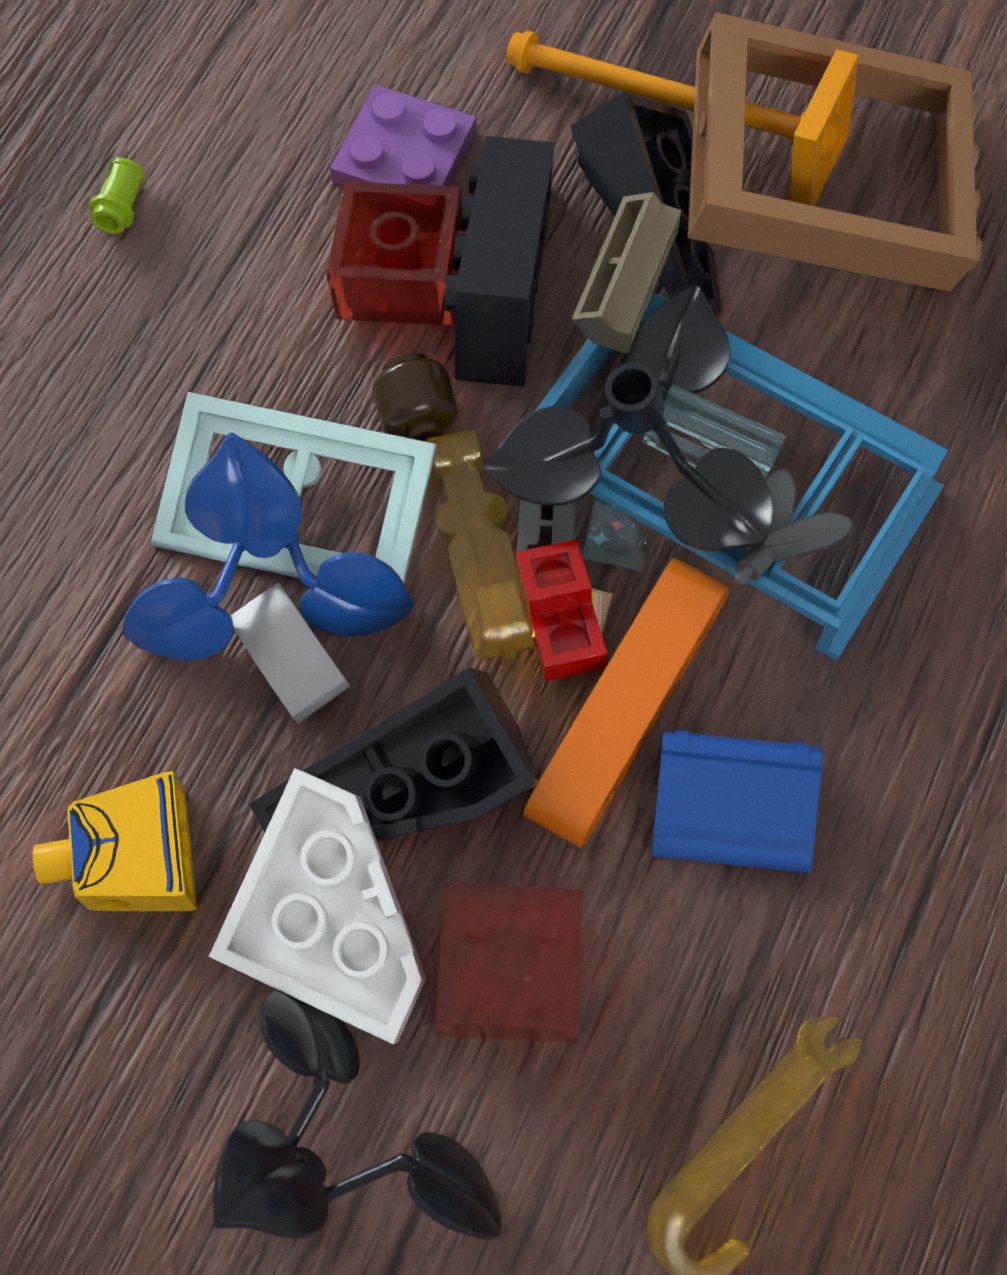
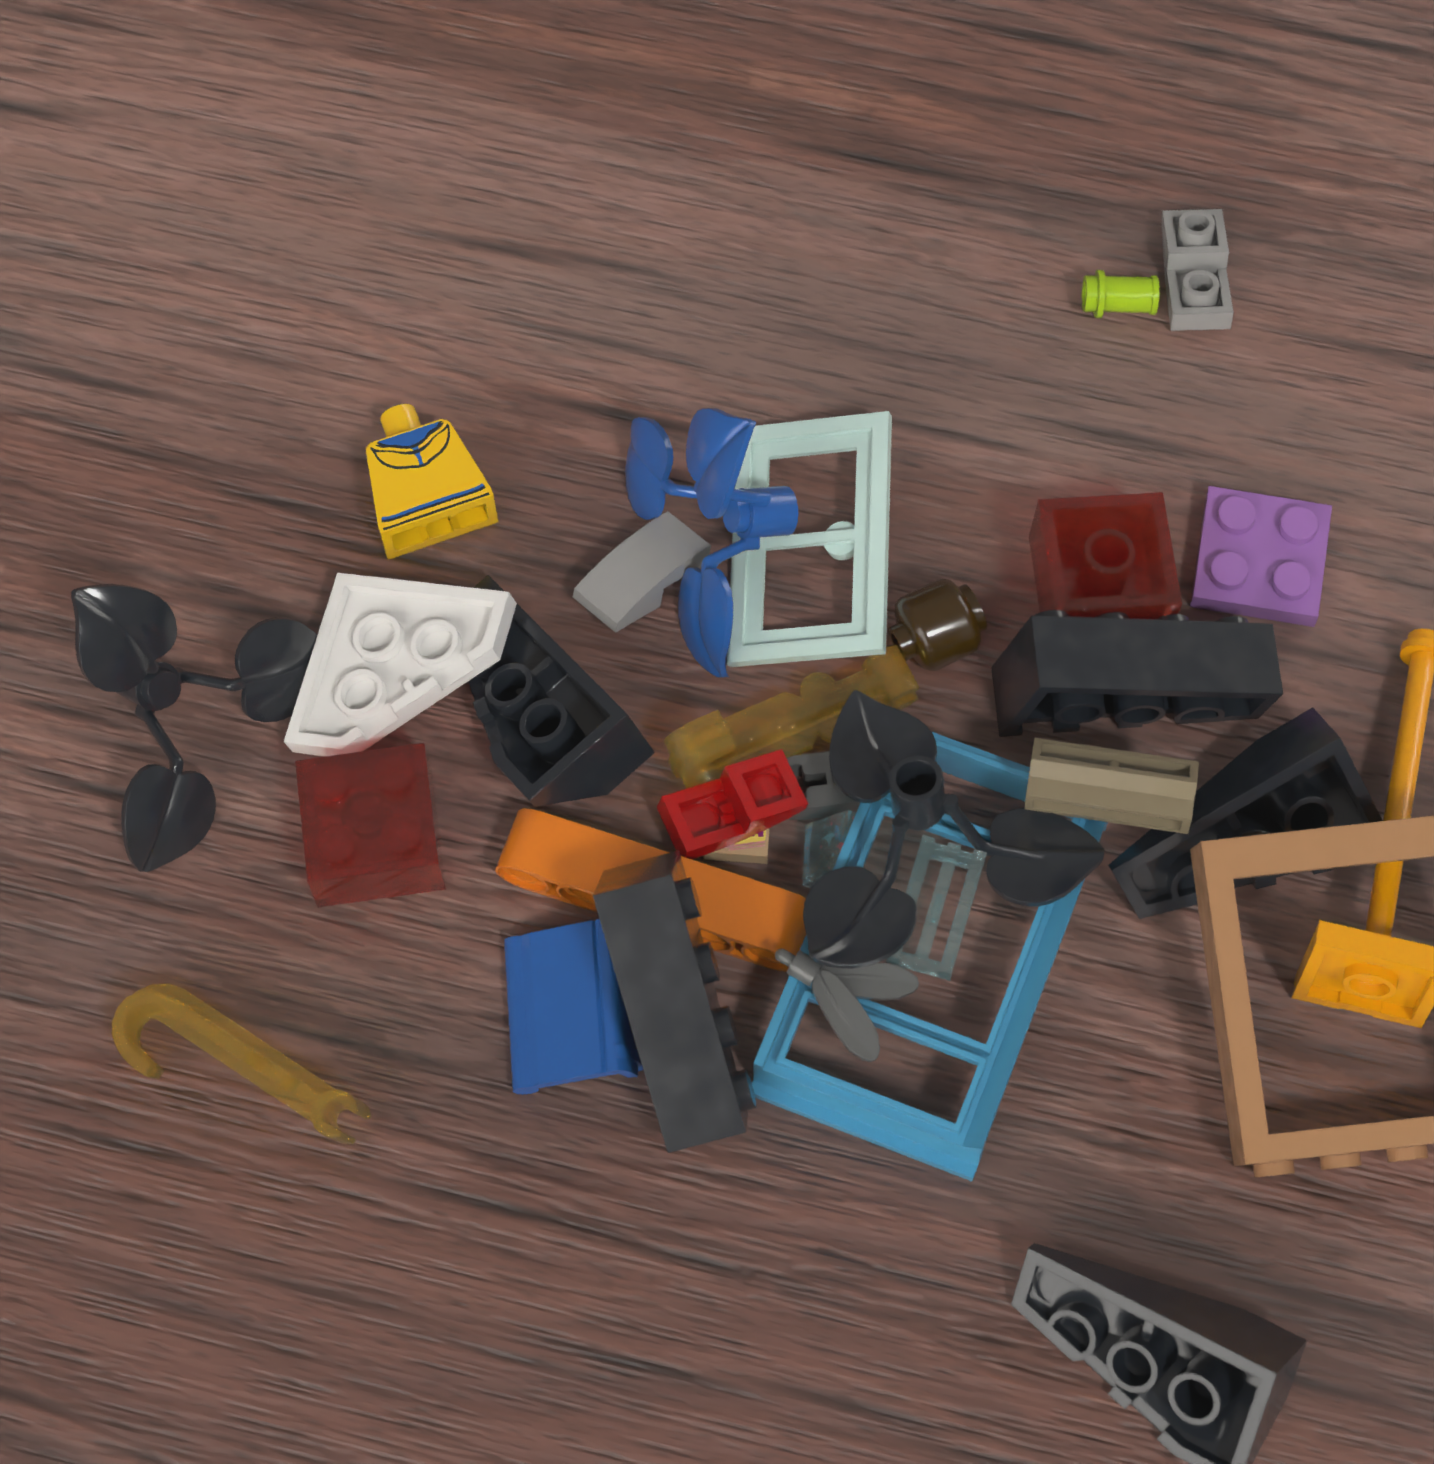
camera: 80 degrees right, 0 degrees up
(97, 134) = (1196, 269): none -> light grey slope
(760, 682) = (672, 1001): none -> black wedge

